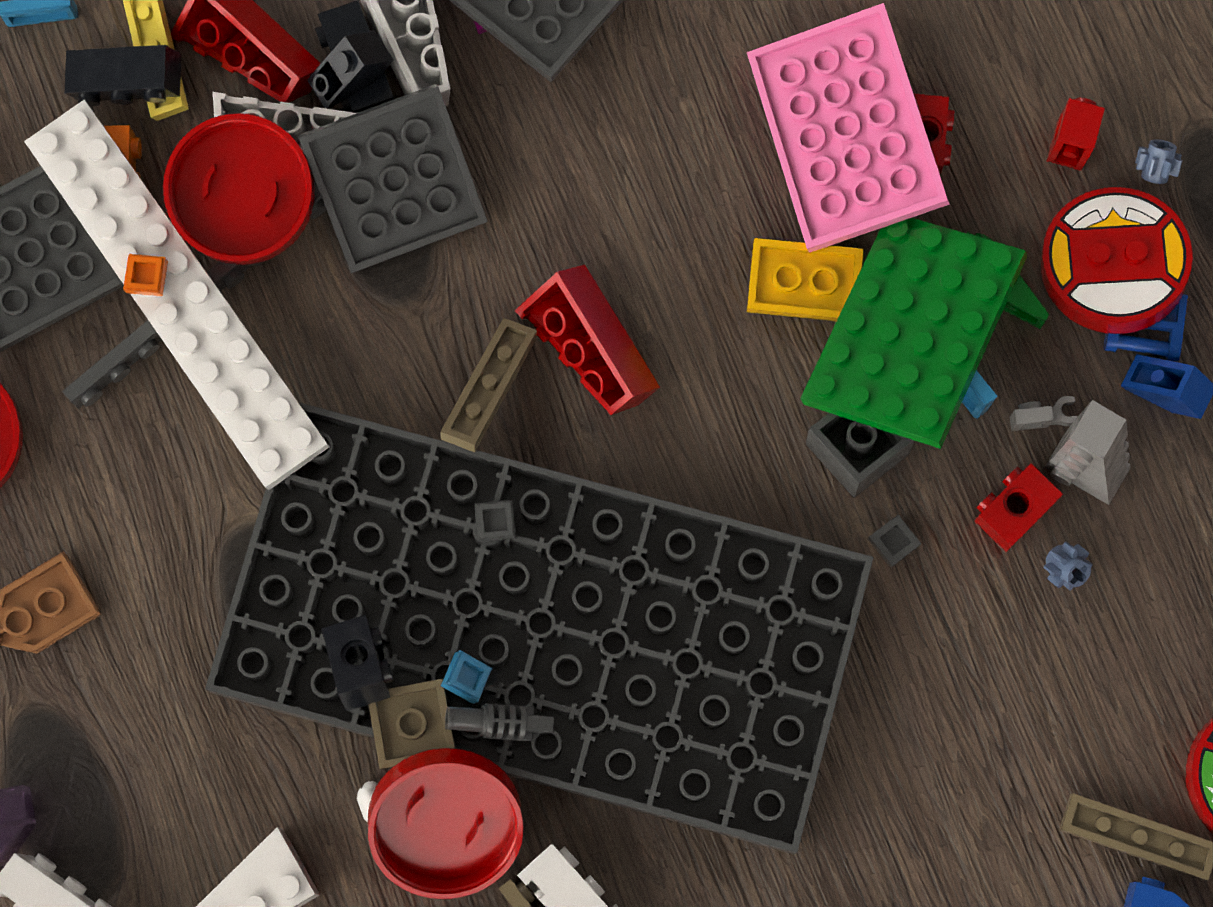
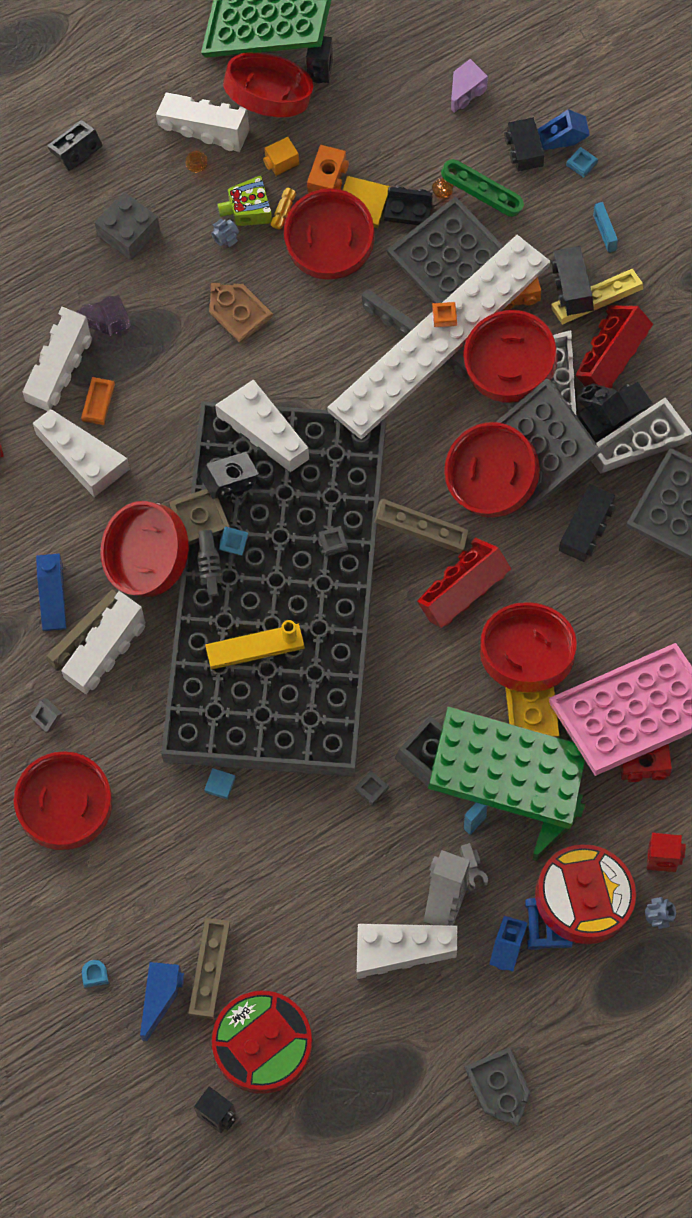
camera: 80 degrees right, 10 degrees down
(152, 861) = (98, 401): none -> orange tile
(273, 595) = (260, 421): none -> white wedge
(418, 259) = (492, 469): none -> red brick
(530, 138) = (587, 523): none -> black brick
(648, 674) = (255, 646): none -> yellow piece
(718, 264) = (528, 647): none -> red brick
(845, 771) = (220, 783): none -> dark azure tile
(1036, 494) = (414, 871): red brick -> none
(1068, 566) = (375, 895): sand blue gear -> none
(1153, 542) = (402, 946): none -> white wedge

